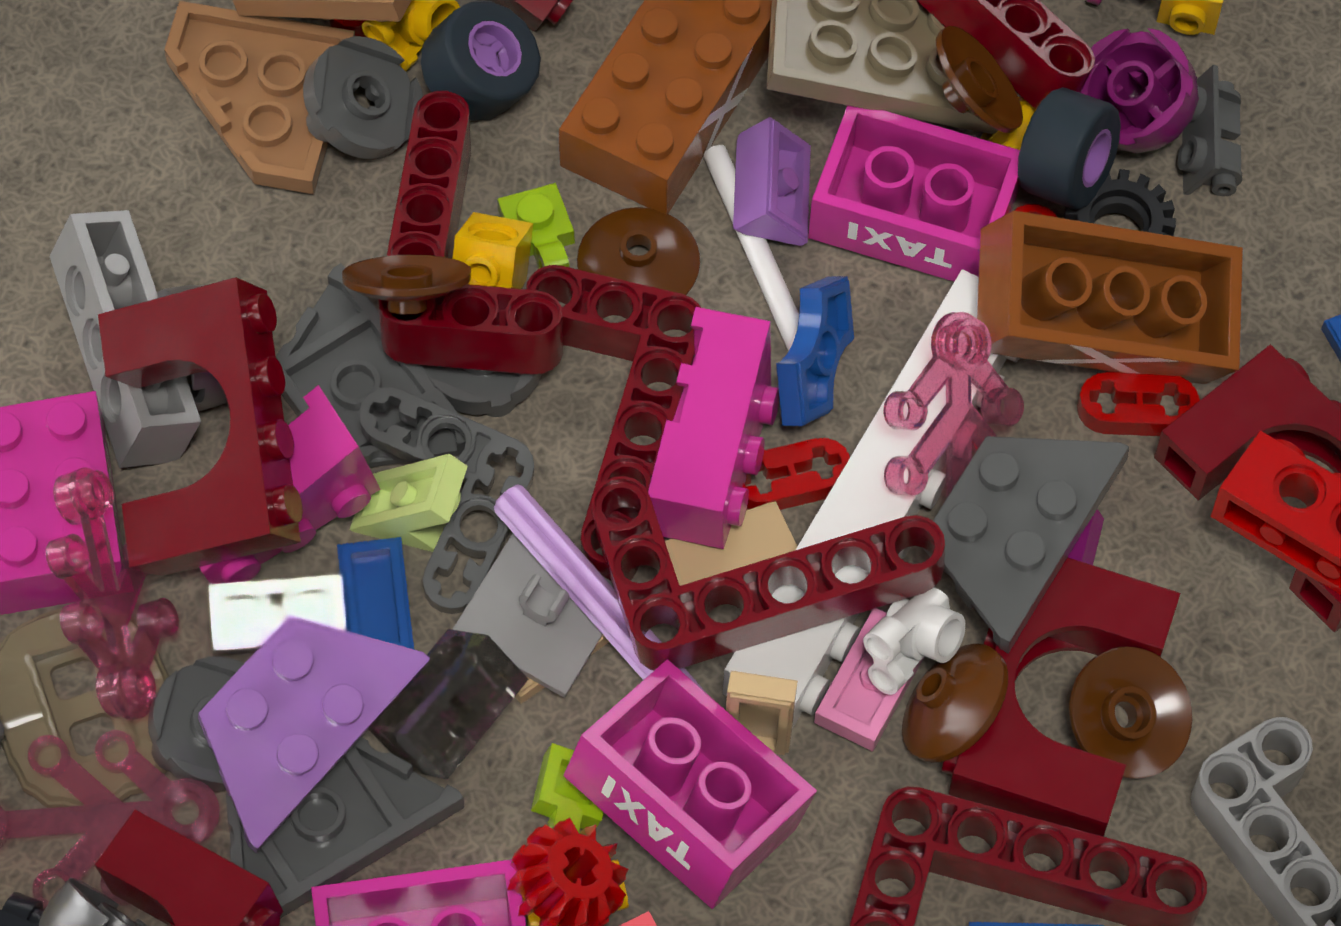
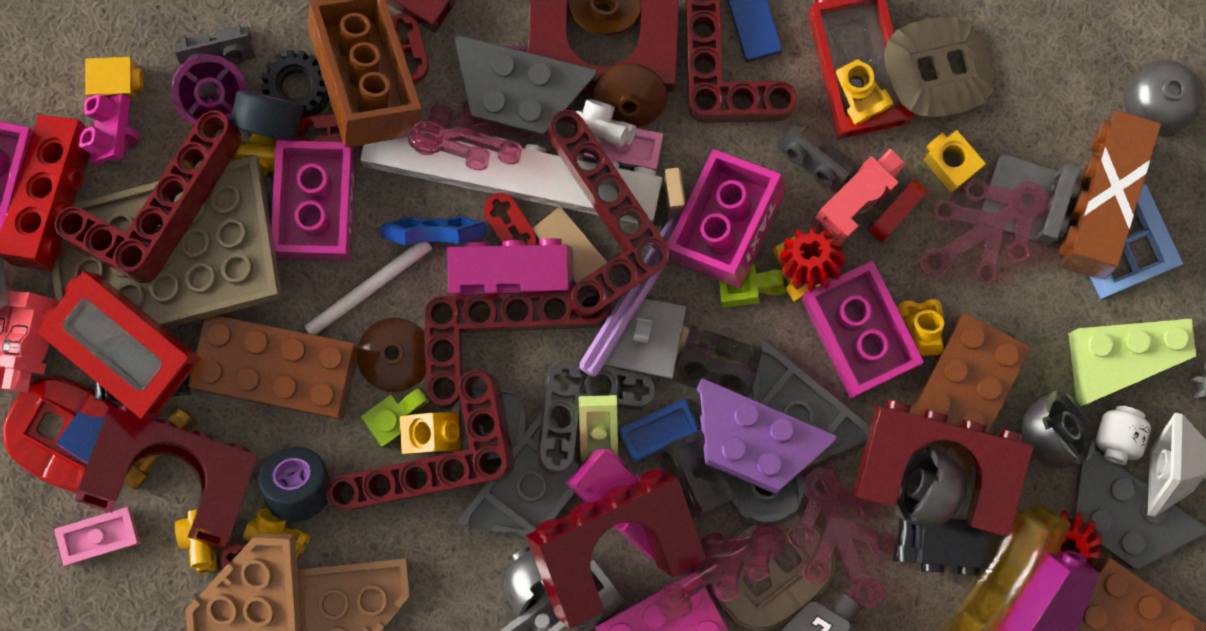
camera: 105 degrees left, 20 degrees up
(339, 118) = (347, 565): dark grey plate -> none
(406, 279) = (483, 462): reddish brown dish -> none
(772, 184) = (324, 290): medium lavender slope -> none
(977, 81) = (244, 174): reddish brown dish -> none

